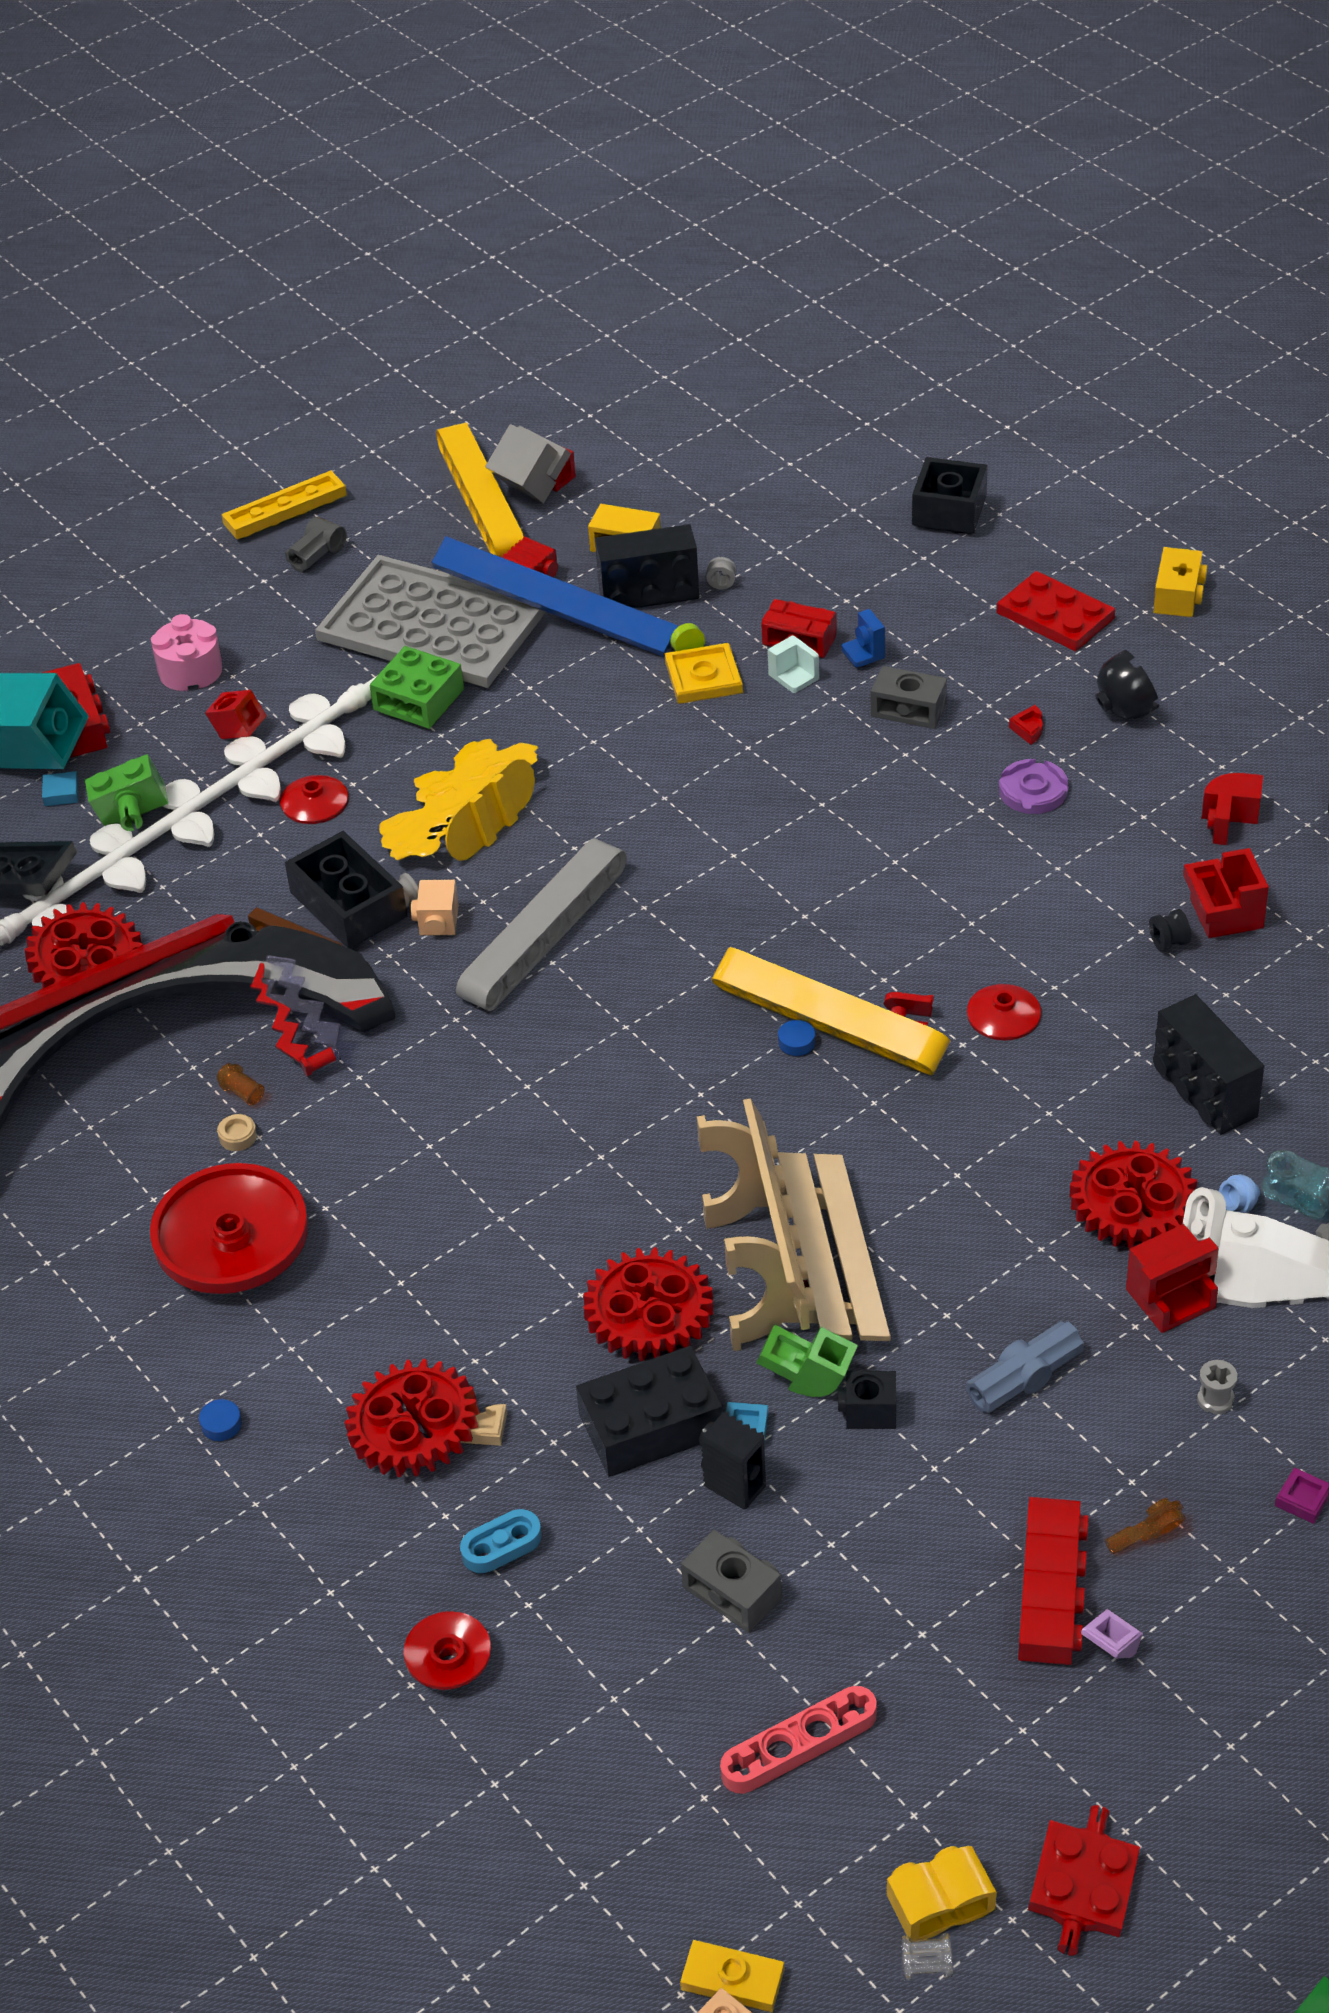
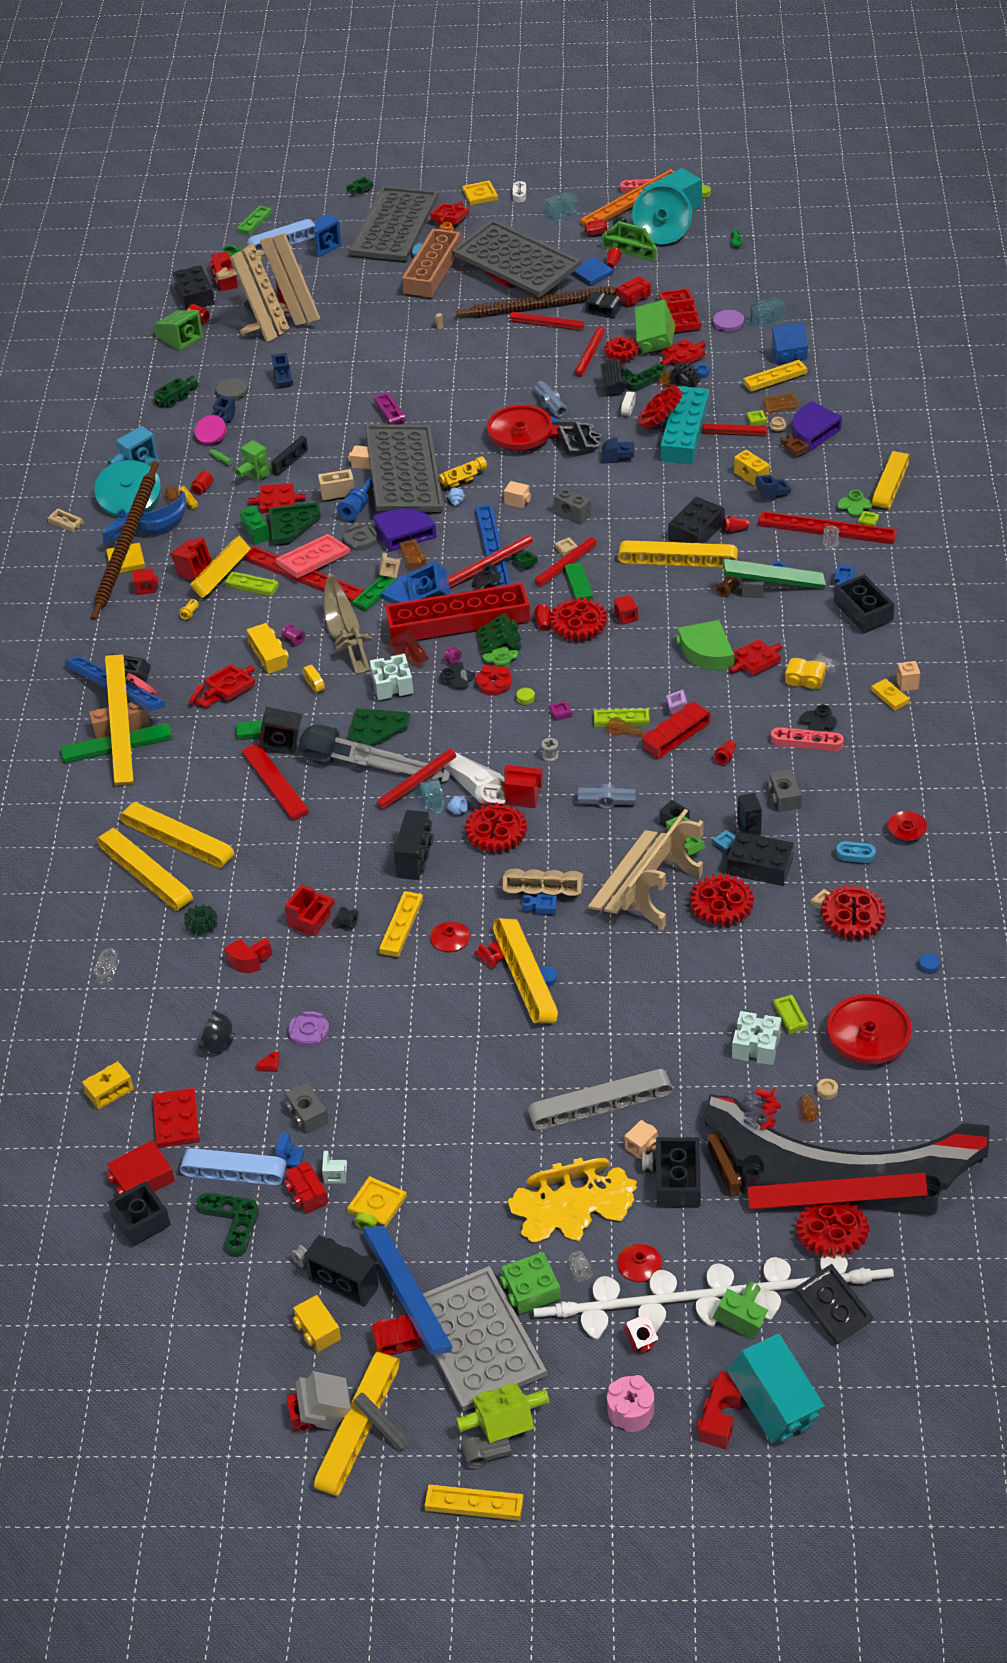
camera: 140 degrees left, 0 degrees up
(320, 559) = (503, 1412): none -> lime brick
(378, 741) = (579, 1266): none -> clear bush
(381, 1204) = (790, 1014): none -> lime tile
(394, 1121) = (756, 1038): none -> light aqua brick
(448, 490) = (381, 1421): none -> dark grey axle
(817, 1801) = (819, 718): none -> black plate
(889, 563) = (236, 1213): none -> dark green beam
(916, 1595) = (724, 753): none -> red cone
(919, 595) = (233, 1166): none -> light blue beam
(920, 1128) = (543, 903): none -> blue plate
(950, 1144) = (537, 881): none -> tan brick
(1009, 535) = (140, 1165): none -> red brick
(1087, 973) = (401, 924): none -> yellow plate
(1182, 1555) = (632, 717): none -> lime tile
(1201, 1826) = (706, 645): none -> bright green brick

